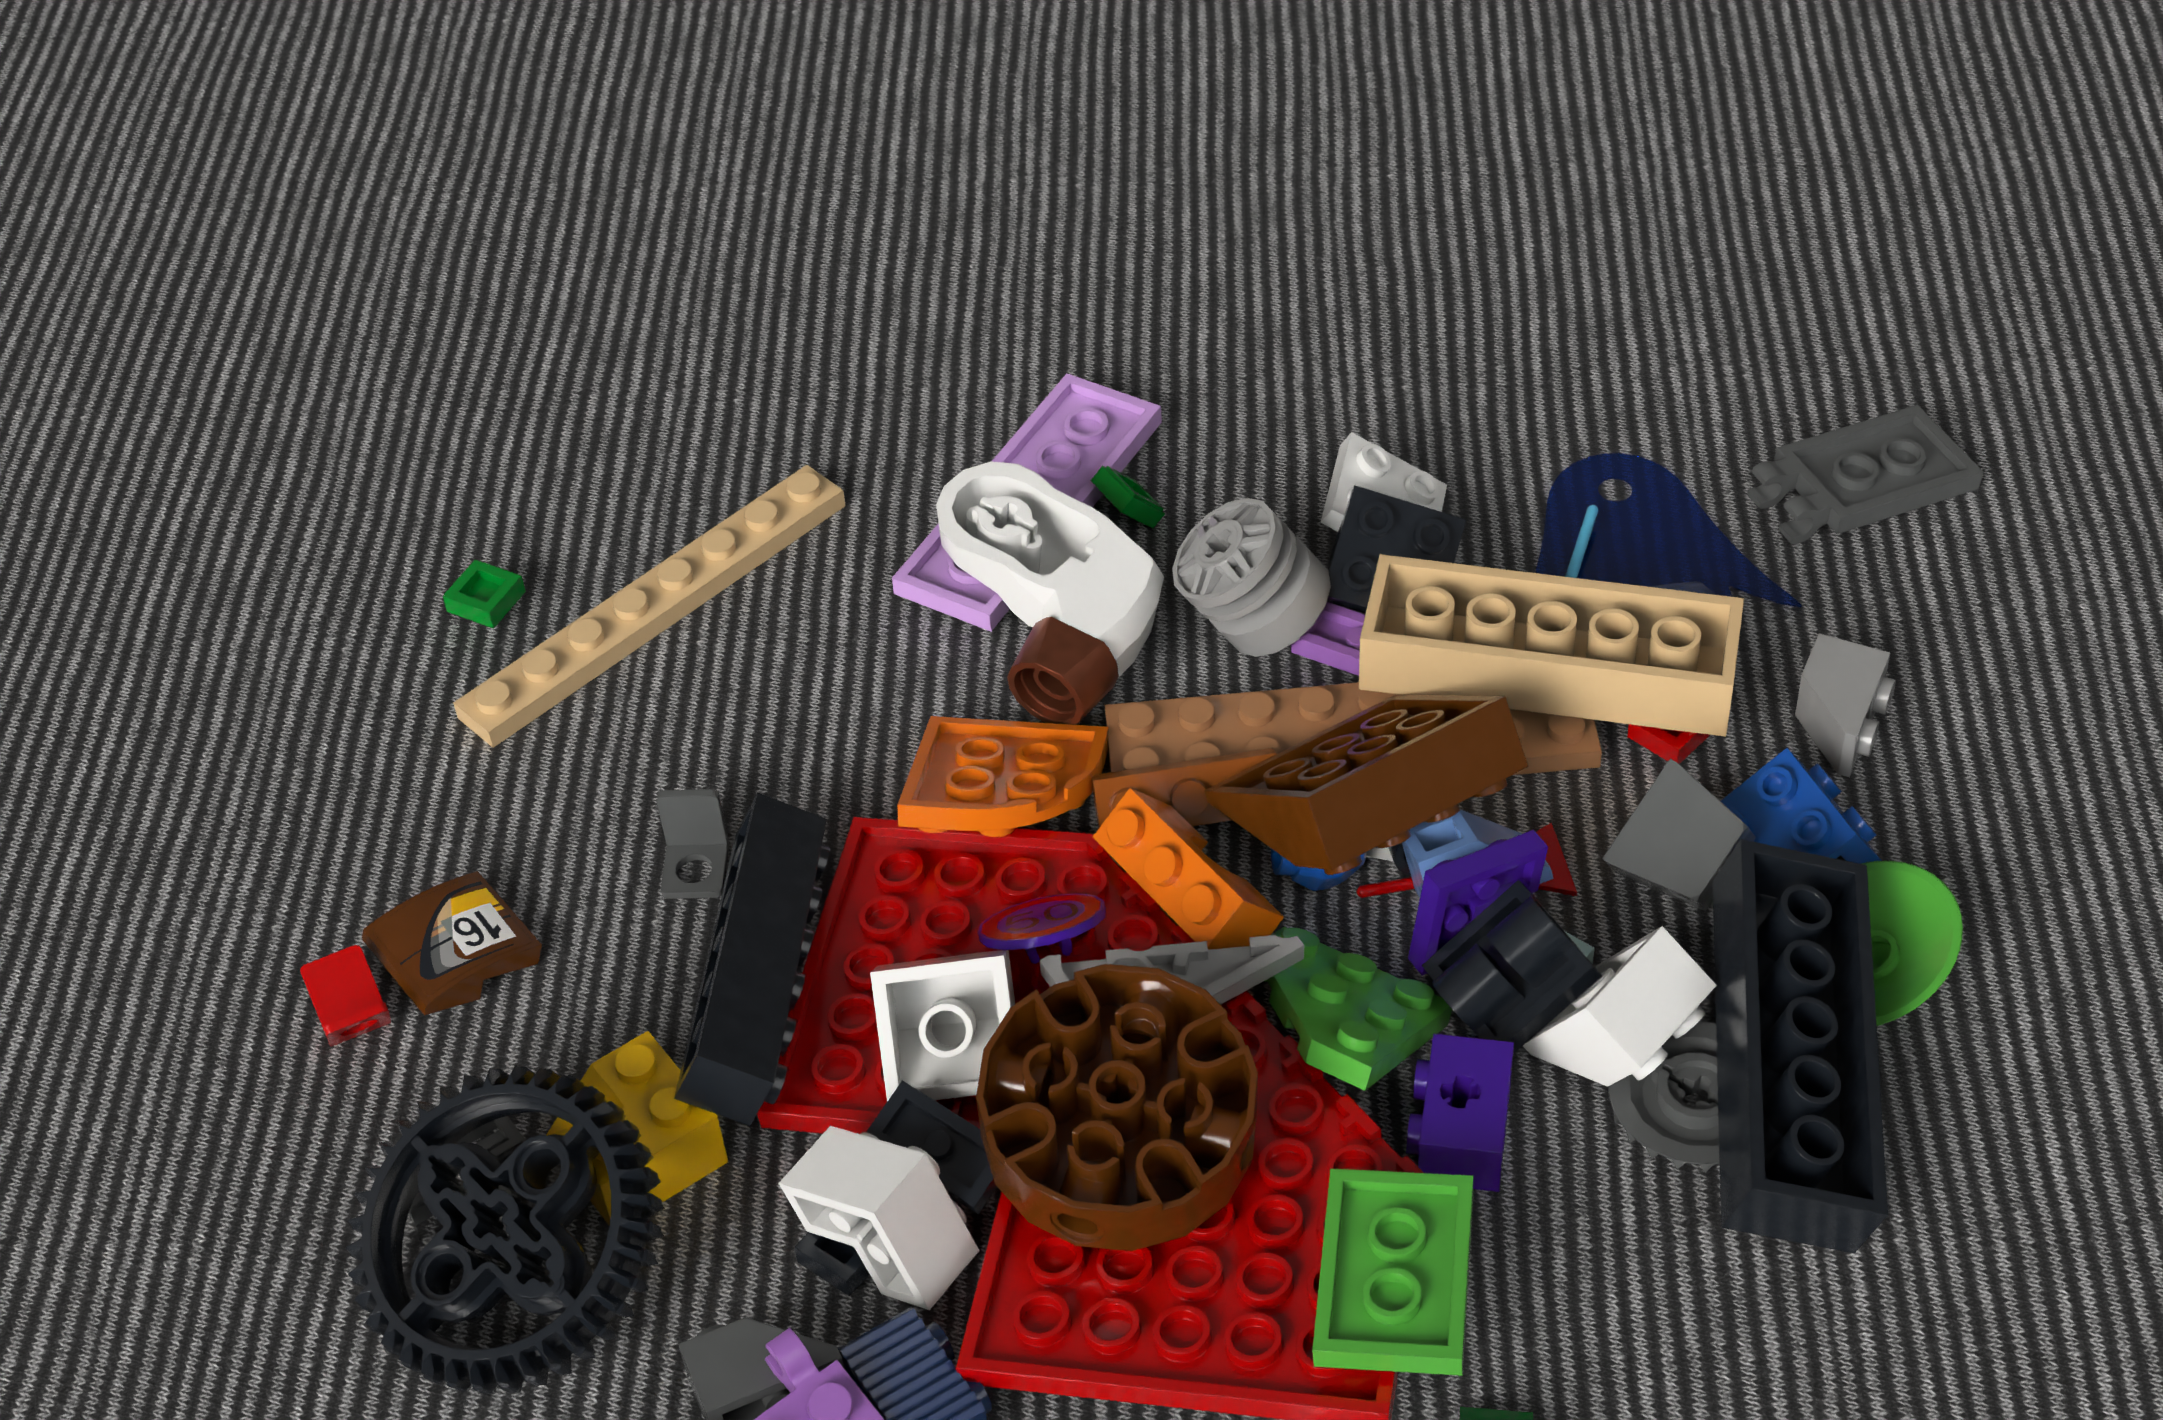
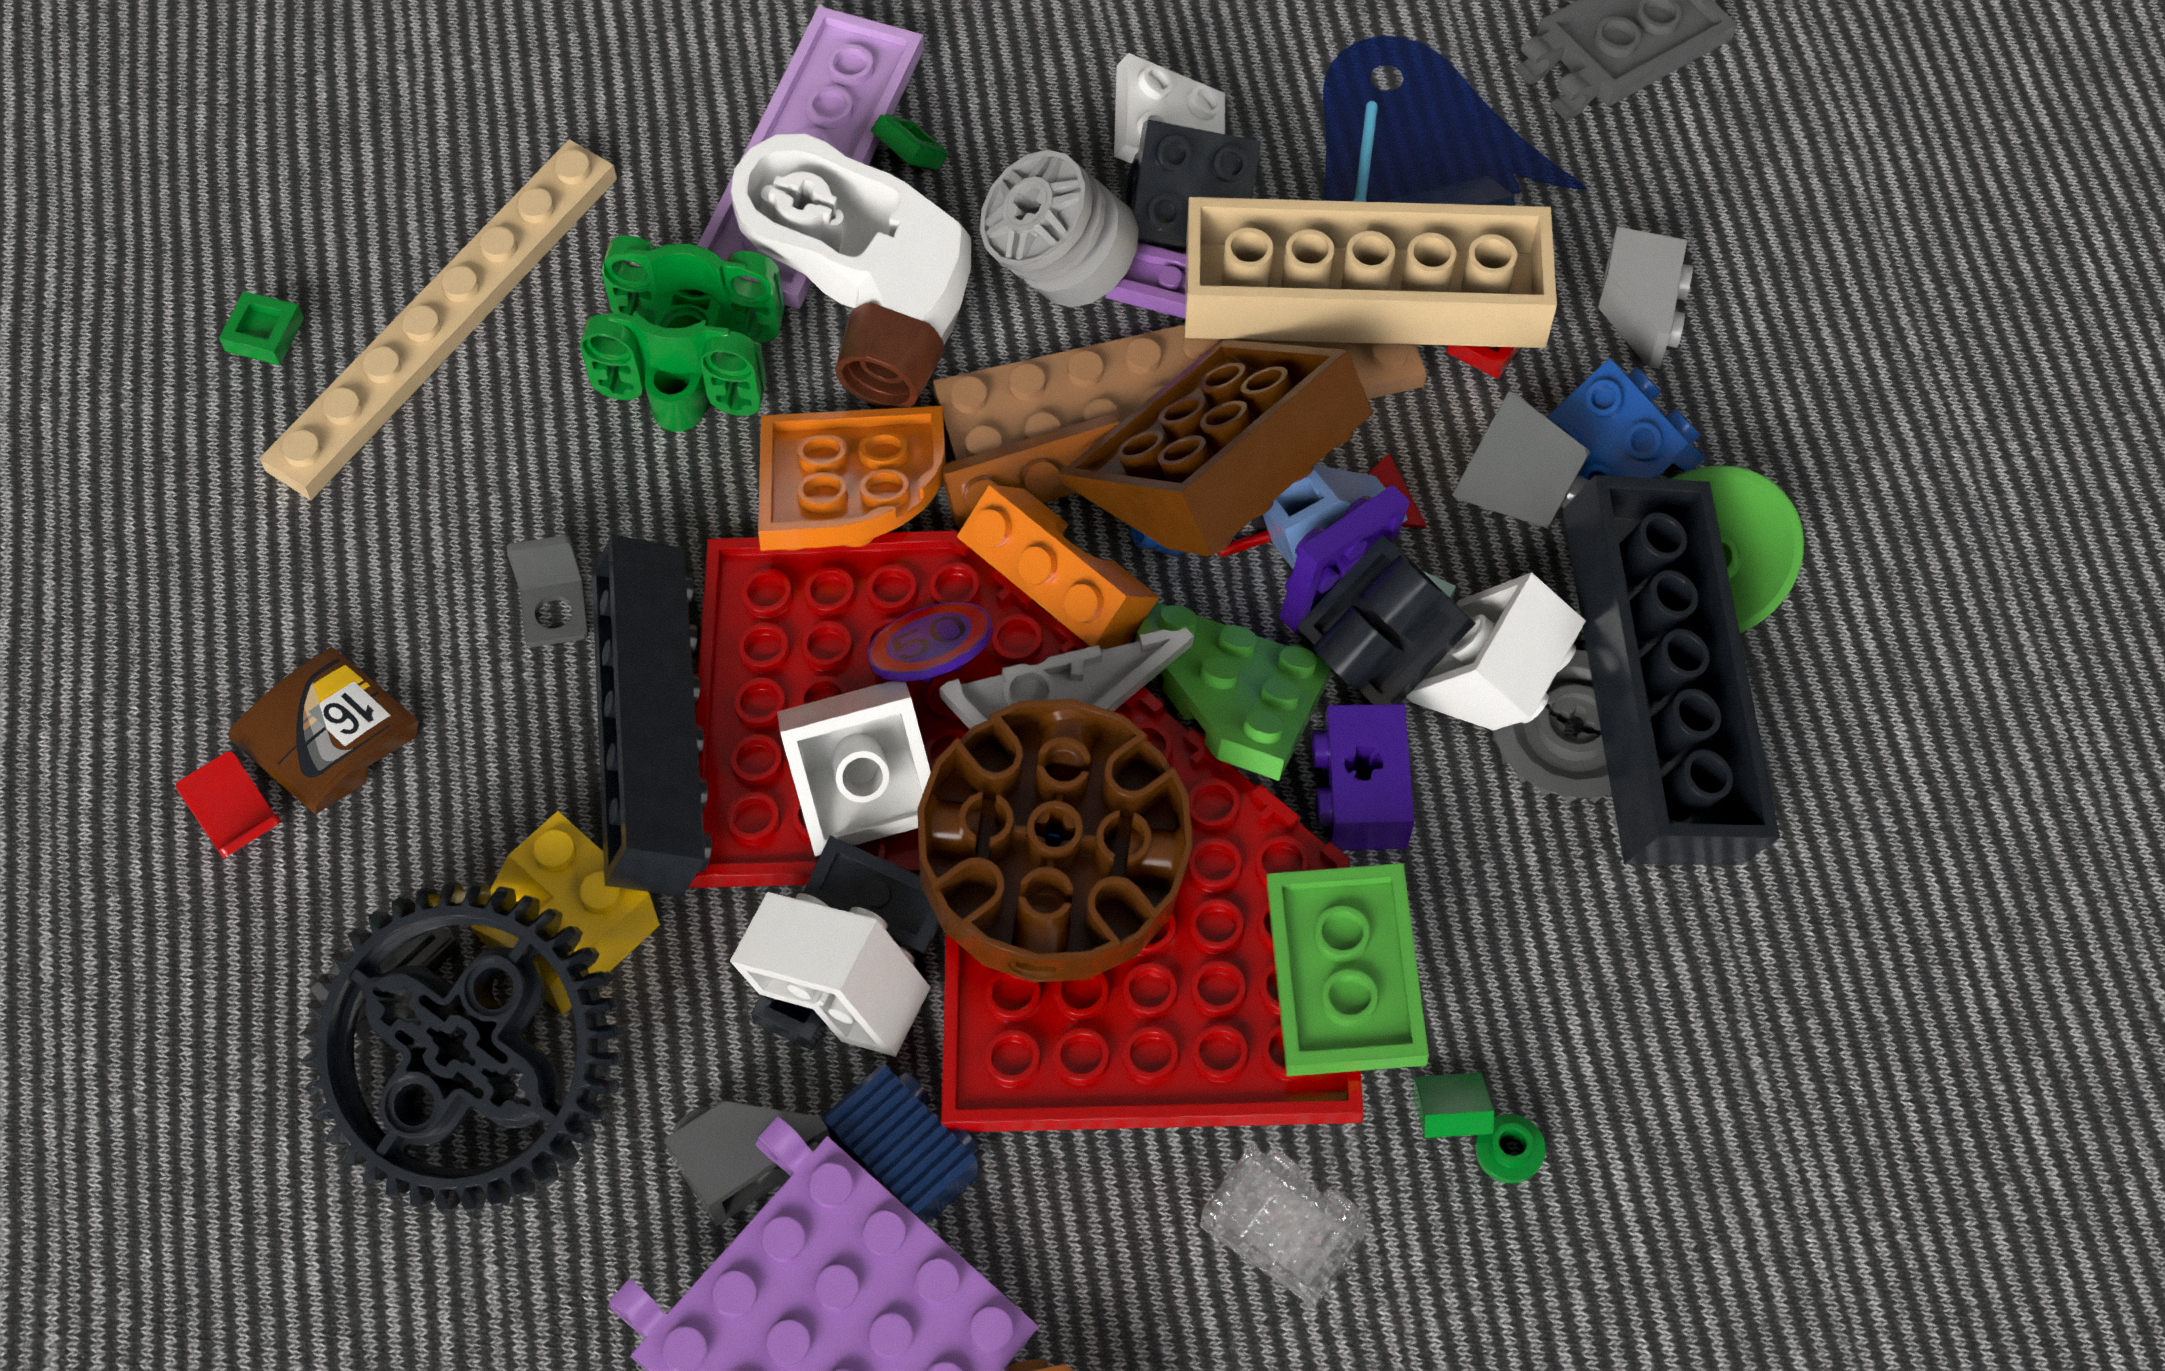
camera: 15 degrees left, 15 degrees up
(871, 632) = (685, 329): none -> green piece

